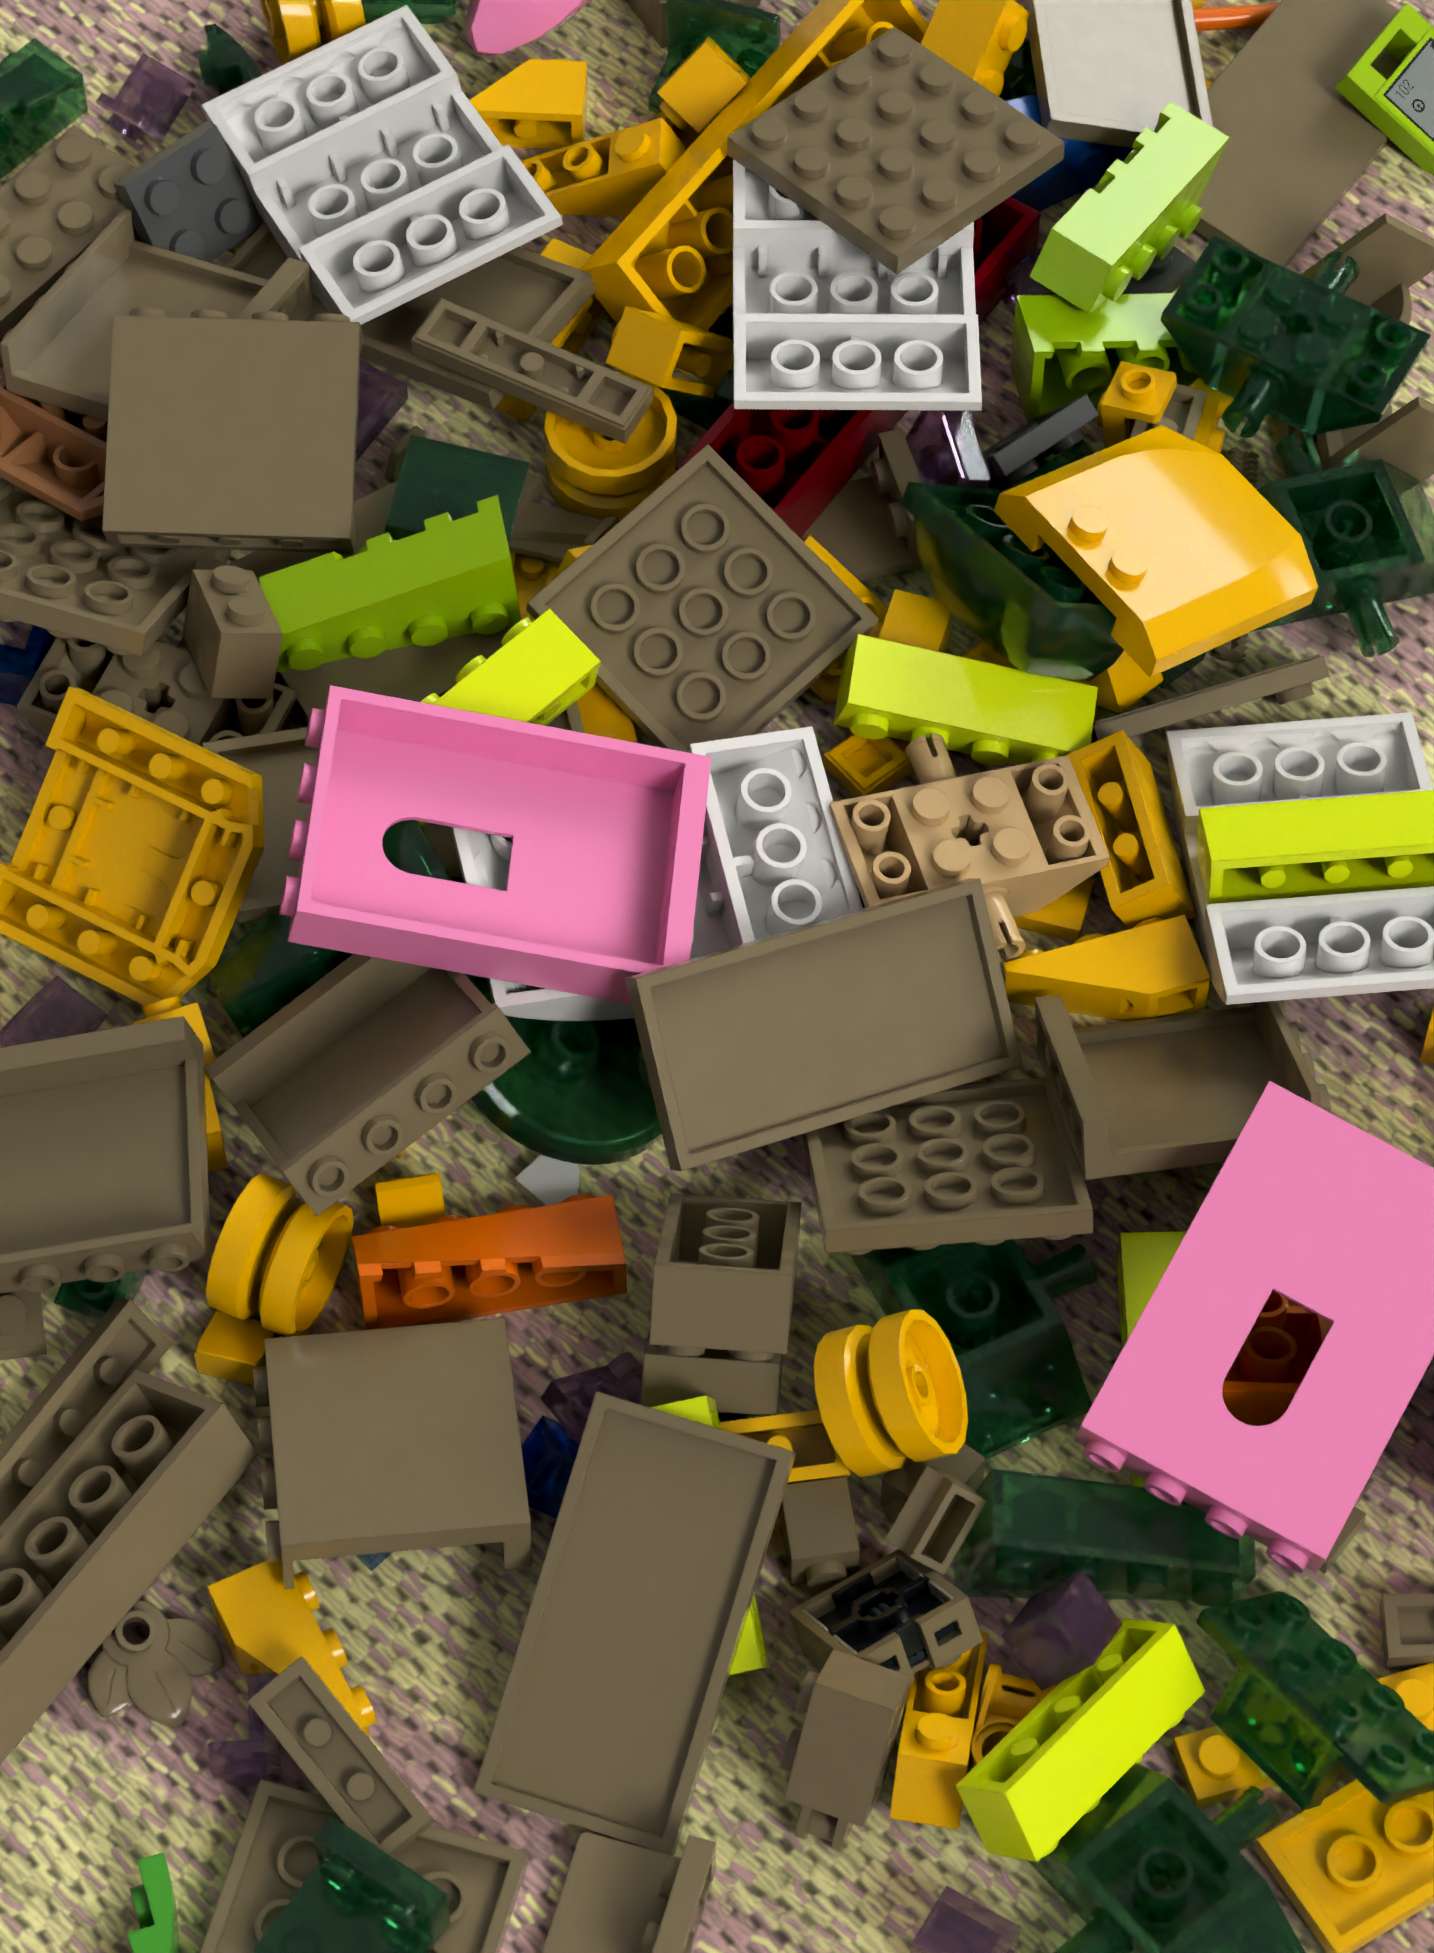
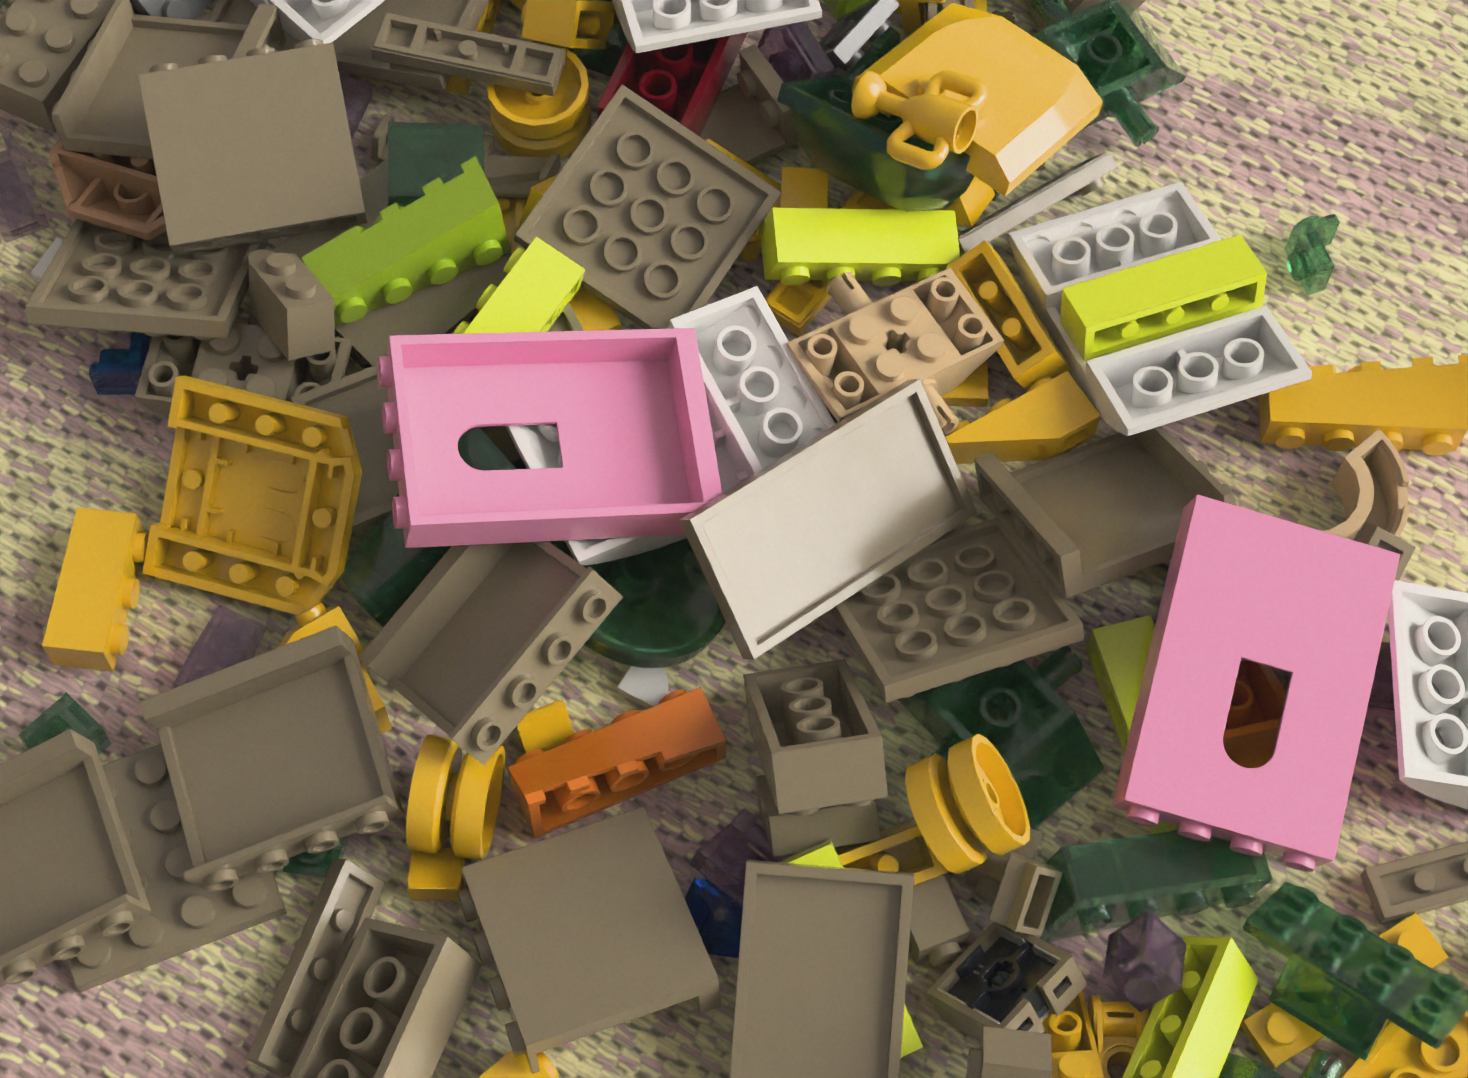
camera: 15 degrees left, 5 degrees up
(1072, 558) = (930, 116): none -> yellow piece

